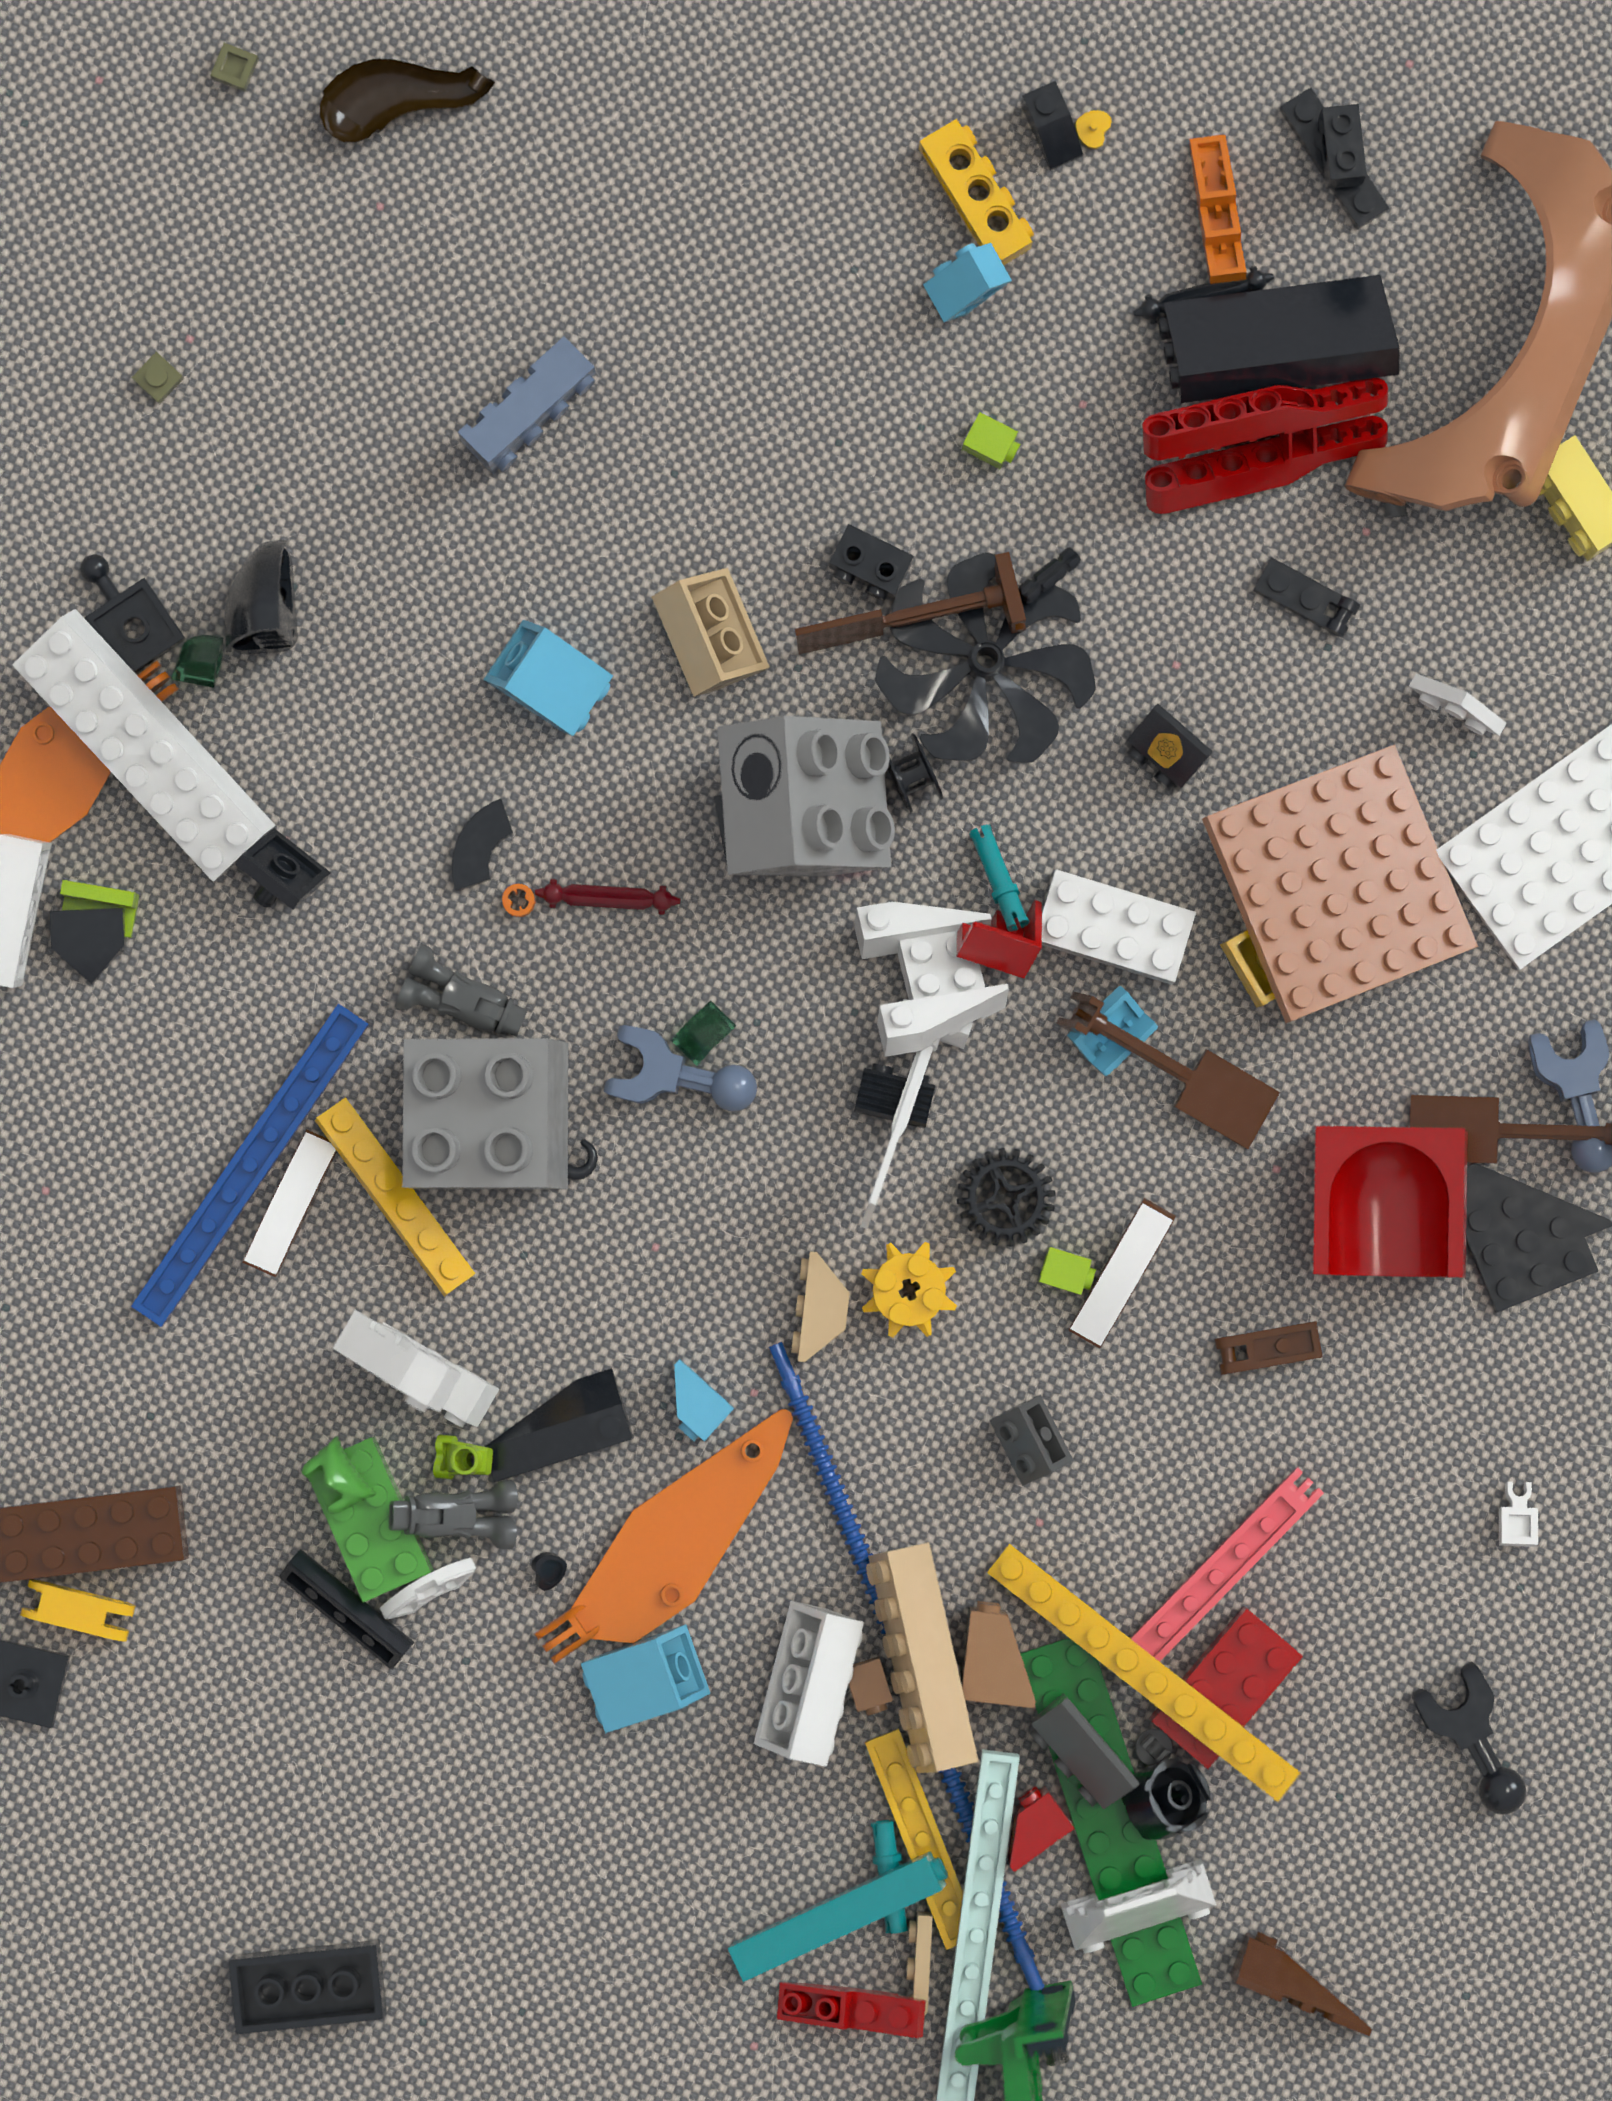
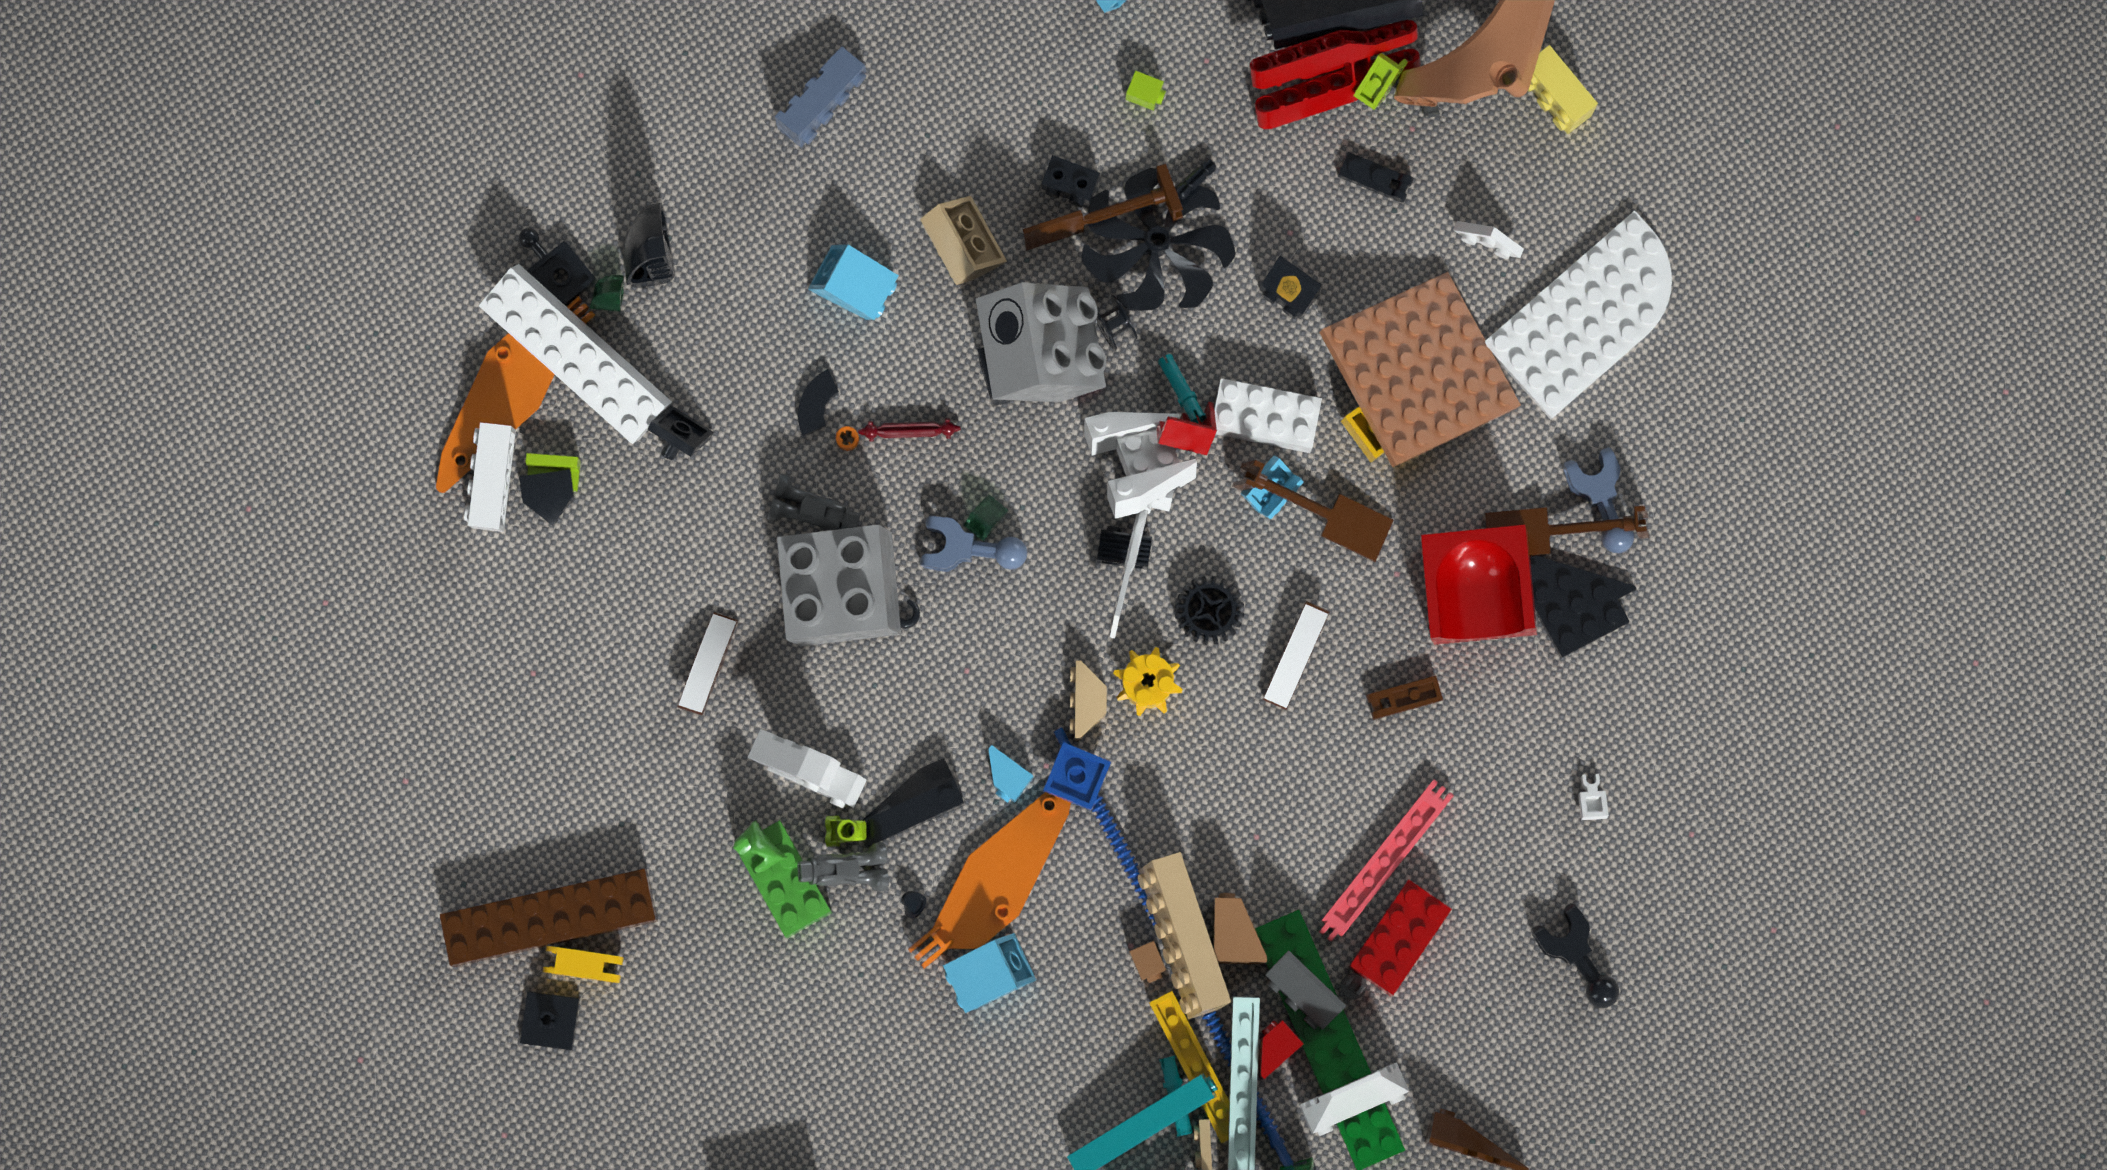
camera: 10 degrees left, 5 degrees down
(157, 377) = (561, 103): olive plate -> none
(250, 1165) = (676, 640): blue plate -> none
(346, 1609) = (773, 945): black brick -> none
(398, 1204) = (780, 652): yellow plate -> none
(427, 1588) = (830, 923): white tile -> none
(795, 1416) = (1077, 776): none -> blue hinge
(809, 1683) = (1105, 962): white brick -> none
(1030, 1440) = (1244, 777): dark grey brick -> none
(1066, 1271) = (1257, 658): lime brick -> none
(1144, 1673) = (1341, 931): yellow plate -> none
(1167, 1800) = (1366, 1020): black brick -> none
(1325, 461) = (1379, 81): none -> lime panel

